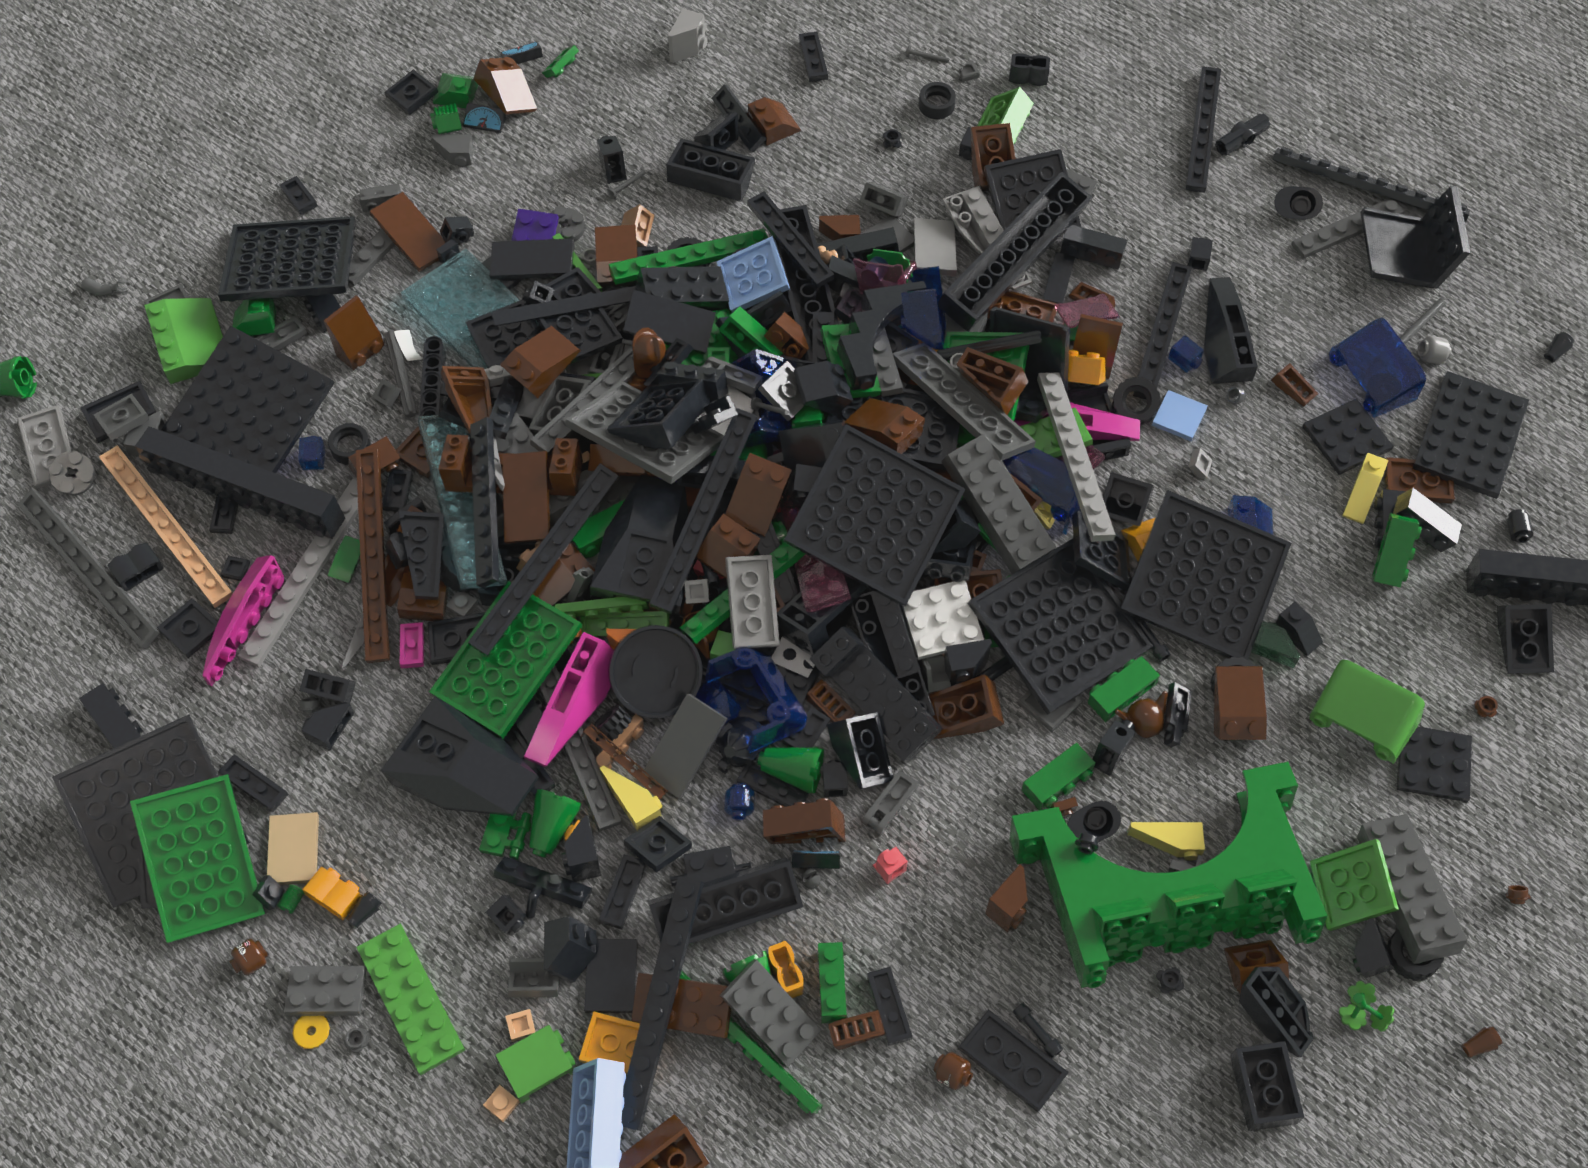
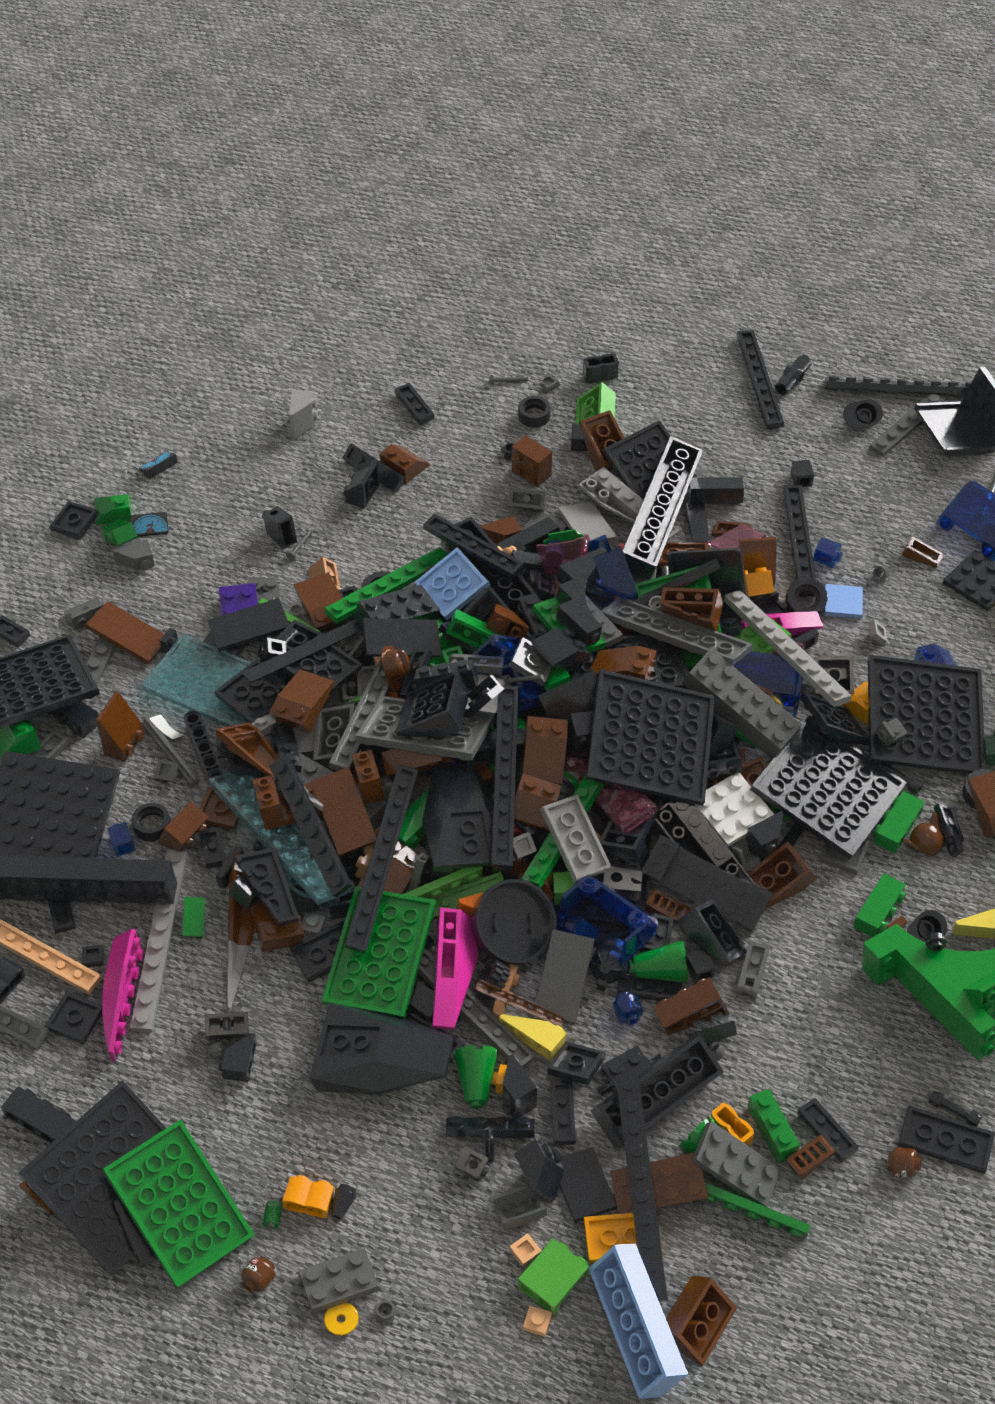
camera: 20 degrees left, 10 degrees down
(253, 783) = (201, 1130): black plate -> none
(268, 892) = (251, 1214): black plate -> none
(293, 847) = (254, 1173): tan tile -> none
(372, 556) = (220, 905): reddish brown plate -> none
(410, 999) = (417, 1262): bright green plate -> none
(412, 645) = (284, 970): dark pink plate -> none
(457, 229) = (172, 619): black brick -> none
(498, 831) = (431, 1099): green plate -> none
(505, 85) = (158, 491): slope -> none
(566, 57) = (197, 462): green plate -> none
(710, 169) = (370, 513): black slope -> none
(890, 864) = (777, 1017): coral brick -> none
(905, 157) = (531, 461): none -> reddish brown brick
(1008, 903) = (890, 1013): reddish brown slope -> none
(1117, 741) = (915, 859): black torso -> none
(1154, 585) = (891, 731): none -> dark grey bracket
(1227, 335) = (854, 529): black wedge -> none

